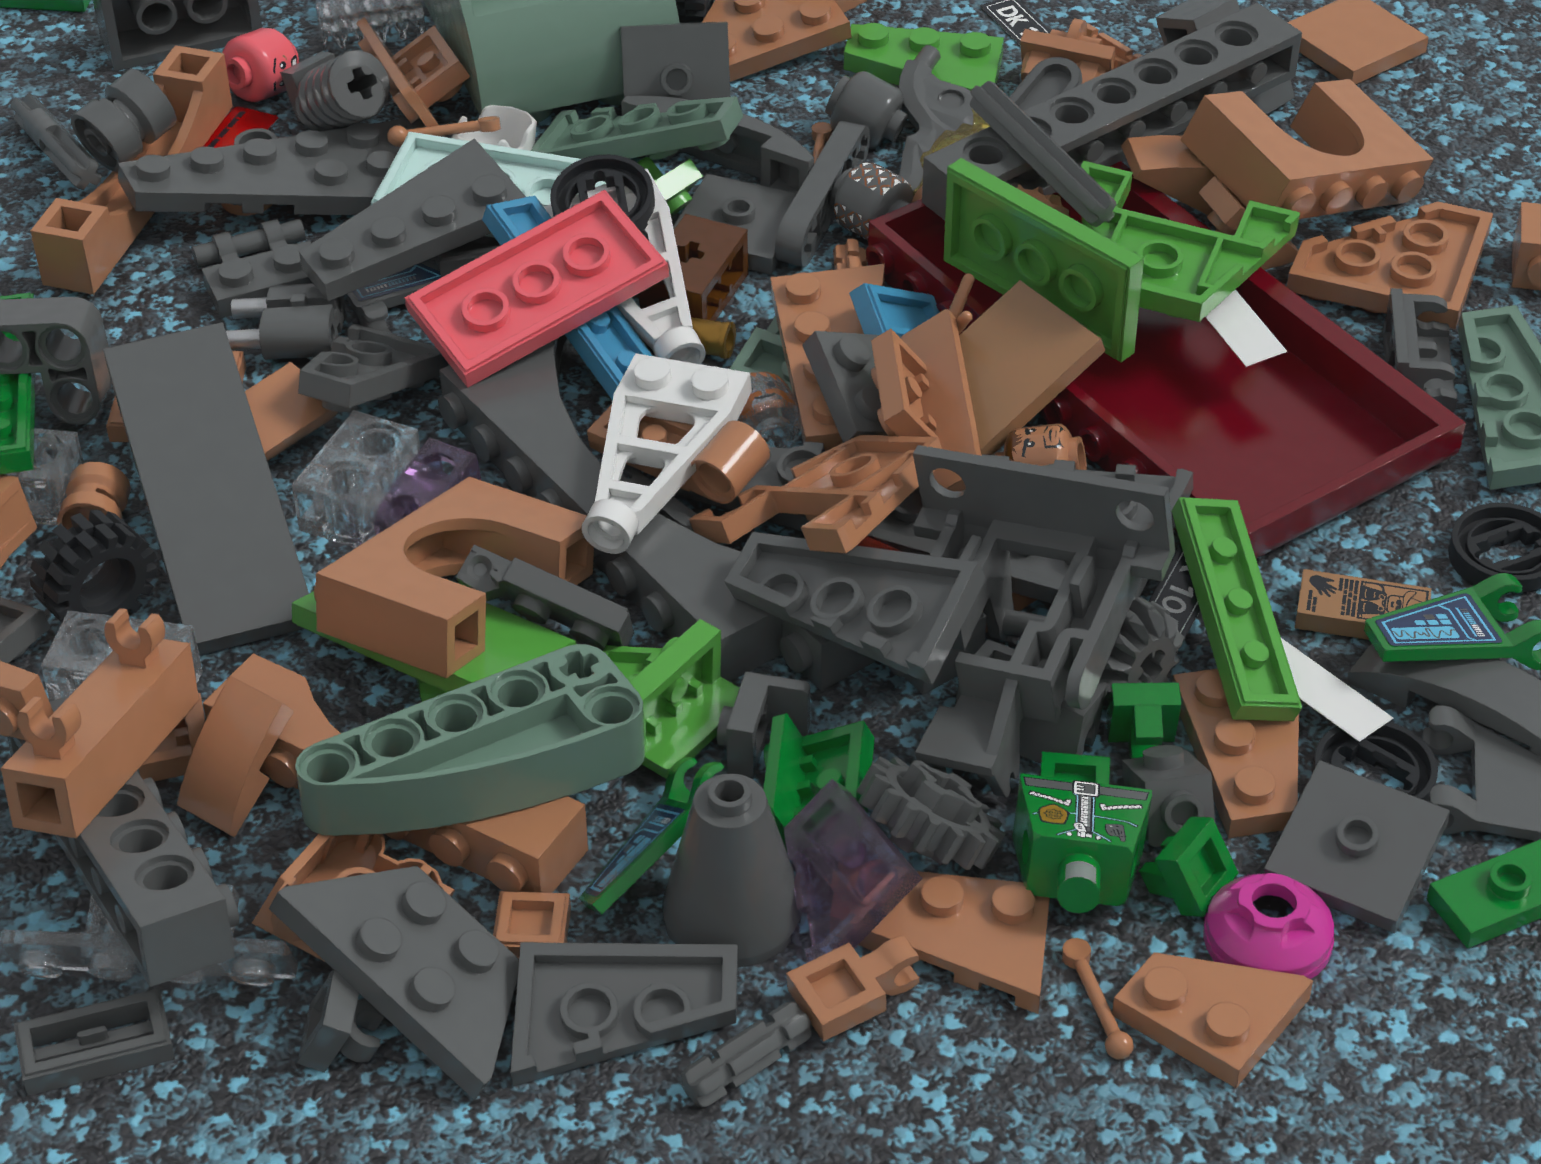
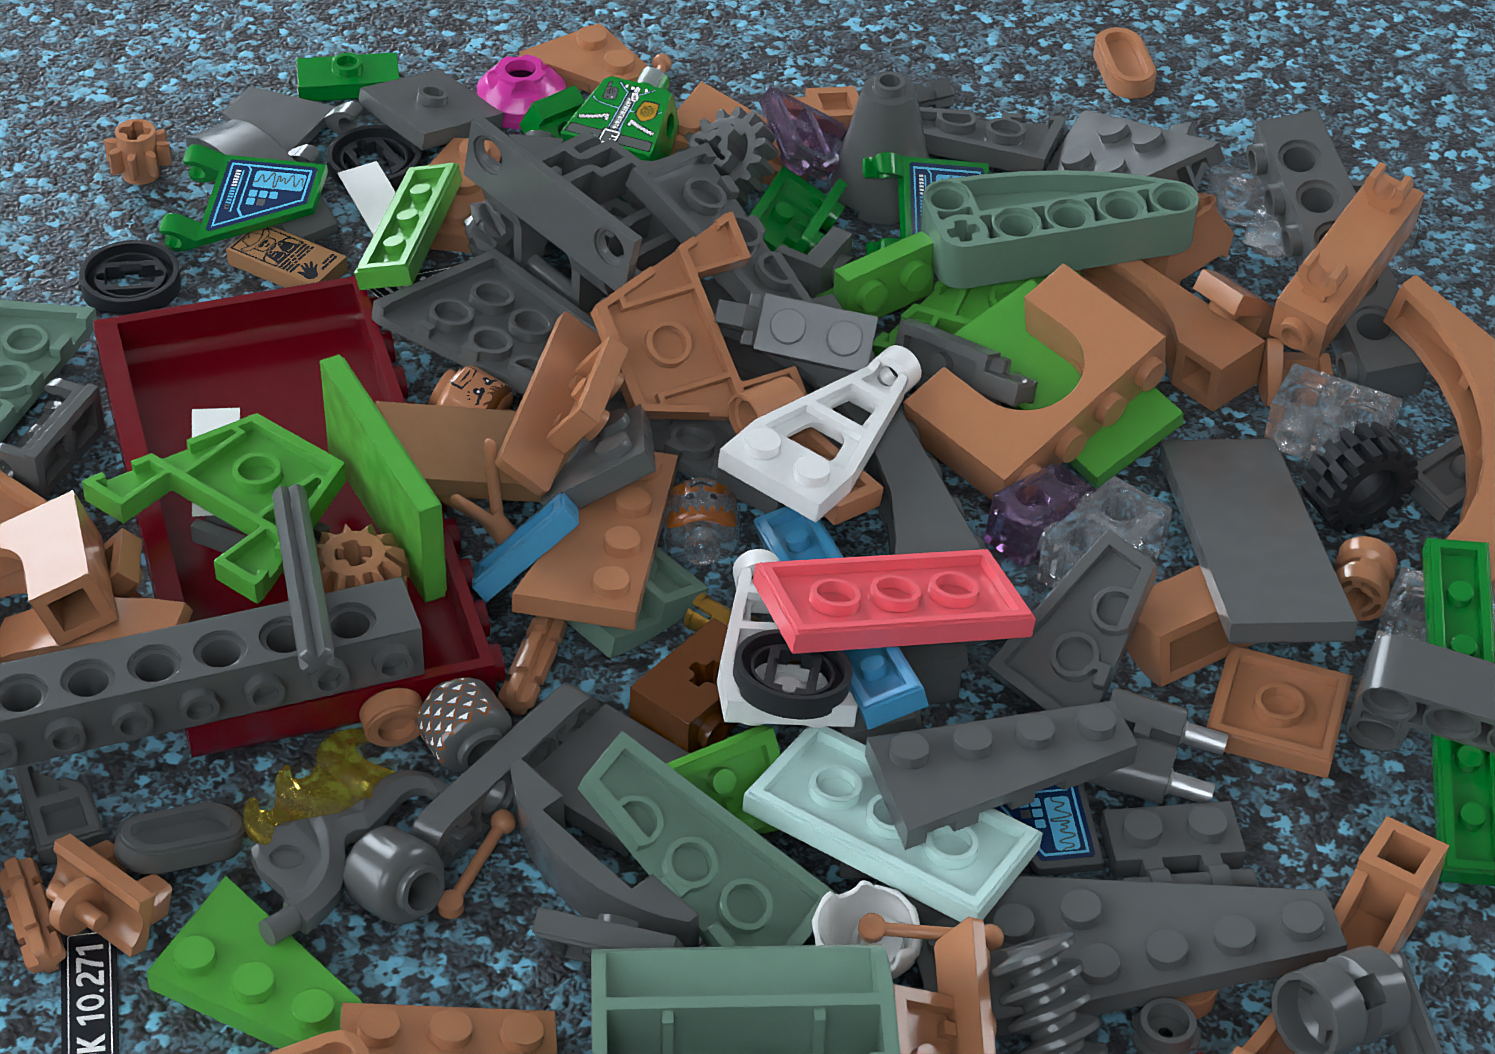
camera: 165 degrees left, 0 degrees up
(735, 516) = (801, 330): none -> hinge

